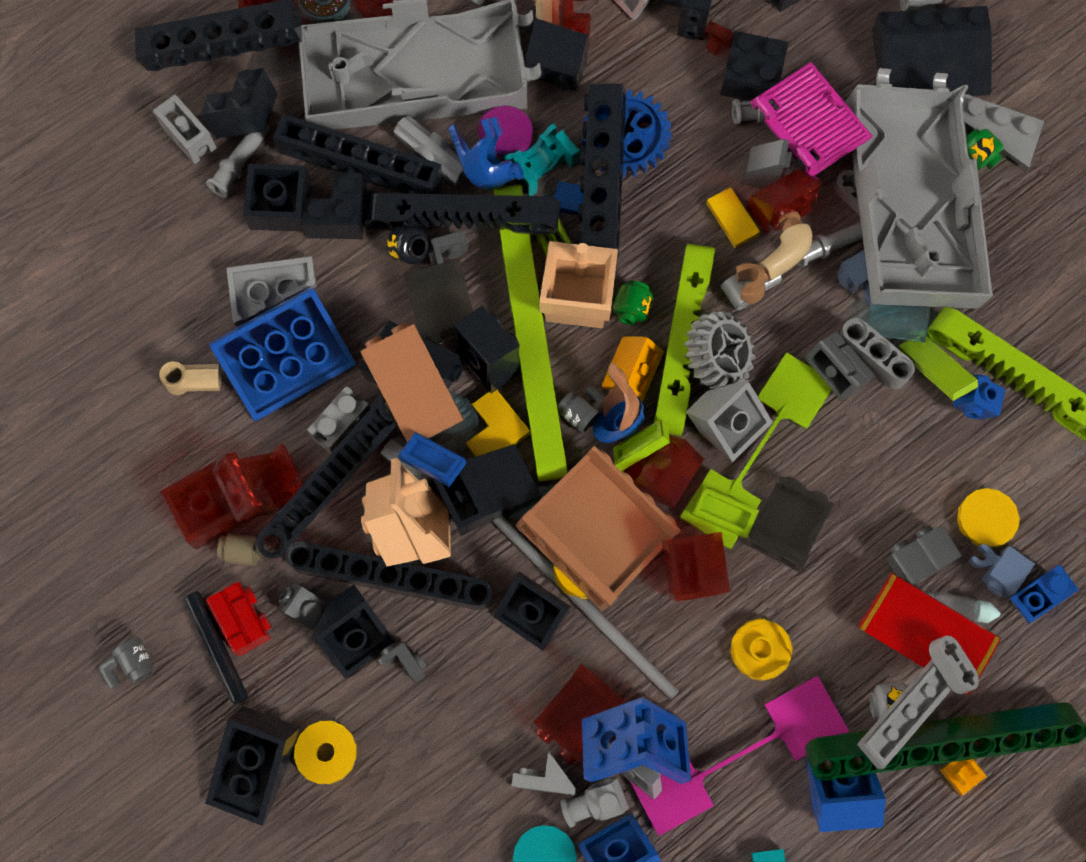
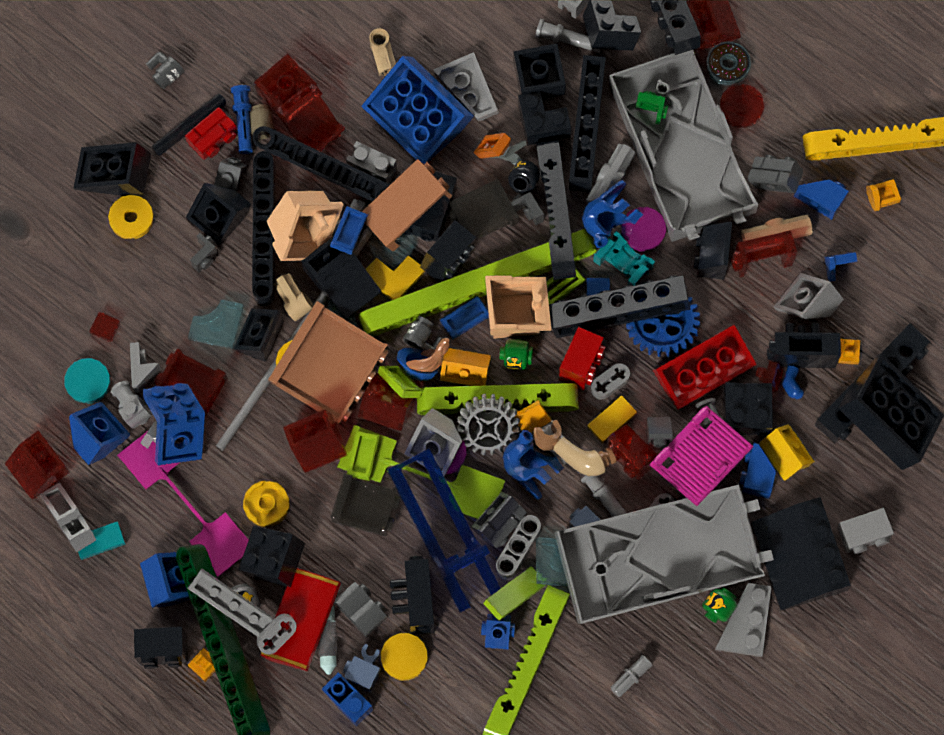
camera: 80 degrees right, 0 degrees up
(216, 571) = (242, 111): none -> blue pin
(357, 76) = (652, 102): none -> green bracket
(360, 267) = (498, 147): none -> orange piece
(473, 819) = (104, 327): none -> clear red tile
(501, 554) = (296, 302): none -> tan piece
(509, 664) = (219, 326): none -> clear light blue tile
(568, 355) = (465, 318): none -> blue tile
(658, 226) = (581, 358): none -> red brick
(680, 211) = (614, 385): none -> light grey beam
(692, 104) = (705, 367): none -> red slope
(720, 297) = (532, 417): none -> light orange tile
(731, 21) = (790, 385): none -> blue arm
(763, 320) = (524, 463): none -> blue piece
(811, 43) = (786, 451): none -> yellow panel
(839, 72) = (759, 475): none -> blue slope
(843, 652) = (272, 556): none -> black brick
(915, 405) = (446, 567): none -> clear blue piece
(925, 480) = (418, 595): none -> black piece
(944, 824) = (160, 647): none -> black brick
(1048, 263) = (631, 676): none -> light grey axle

